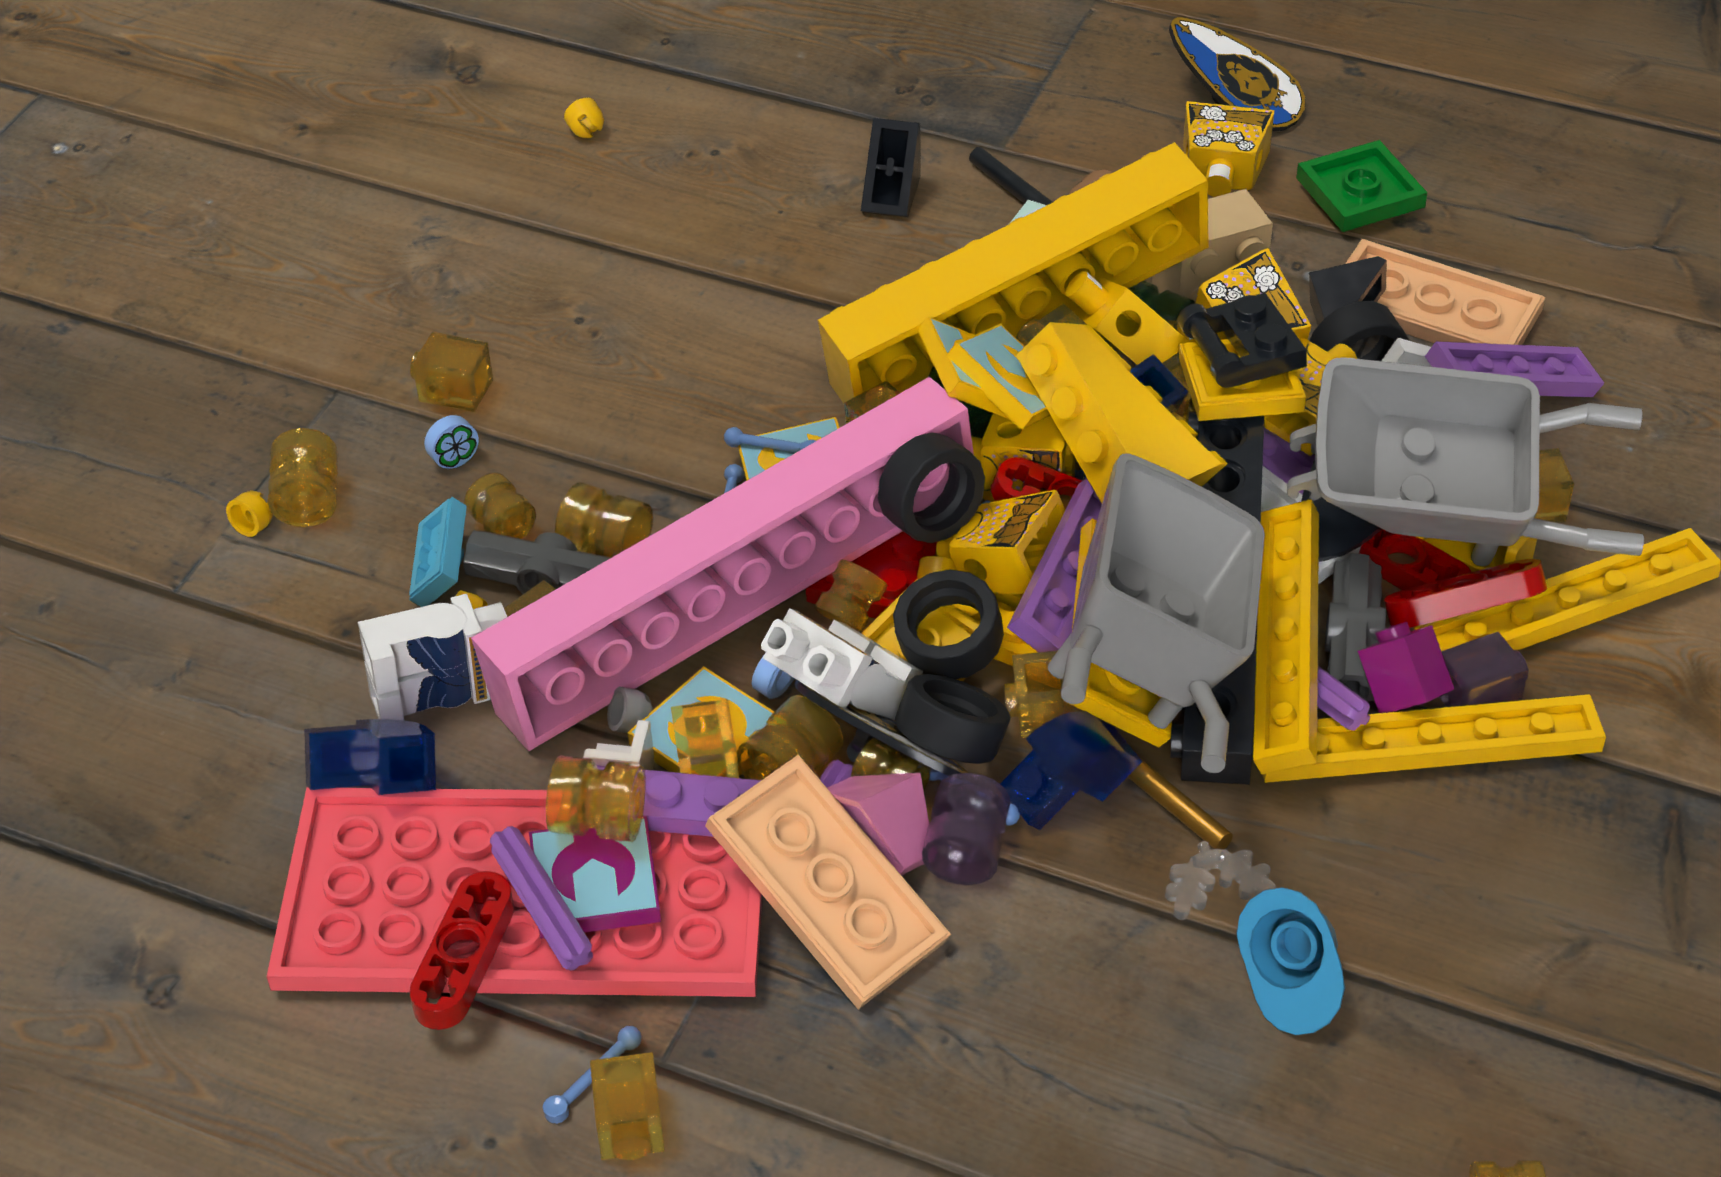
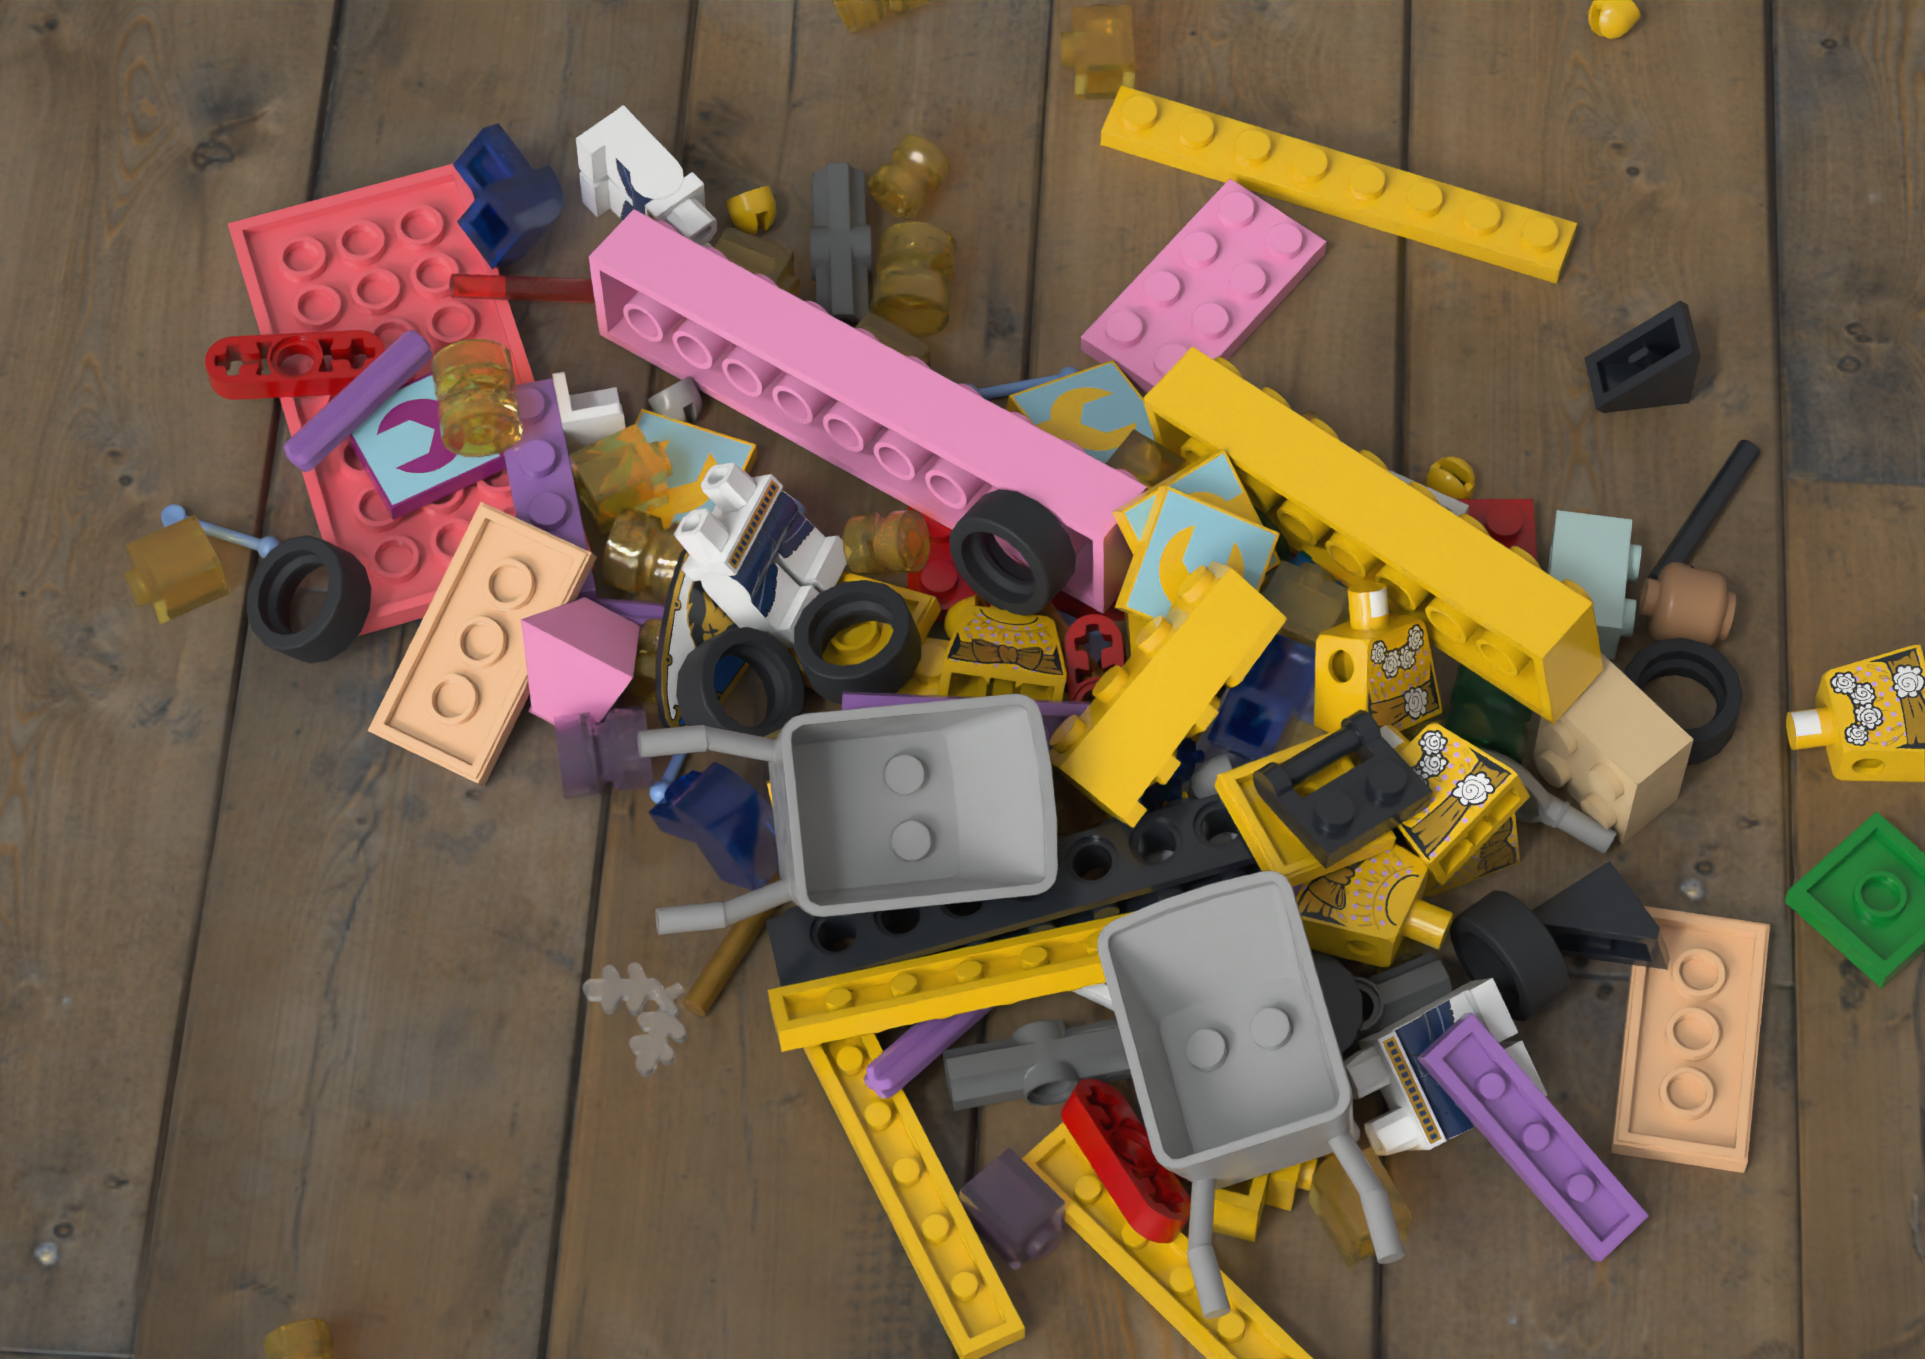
camera: 70 degrees right, 15 degrees up
(438, 552) = (824, 146): medium azure plate -> none
(451, 441) = (993, 94): light blue tile -> none
(473, 766) = (521, 288): none -> clear red bar
(636, 293) = (1339, 184): none -> yellow plate
(677, 978) = (274, 588): none -> black tyre
(699, 380) = (1205, 287): none -> bright pink plate
(735, 437) = (1095, 428): medium blue hinge -> none
(1291, 960) = (539, 1102): dark azure piece -> none
(1405, 667) = (973, 1117): magenta brick -> none

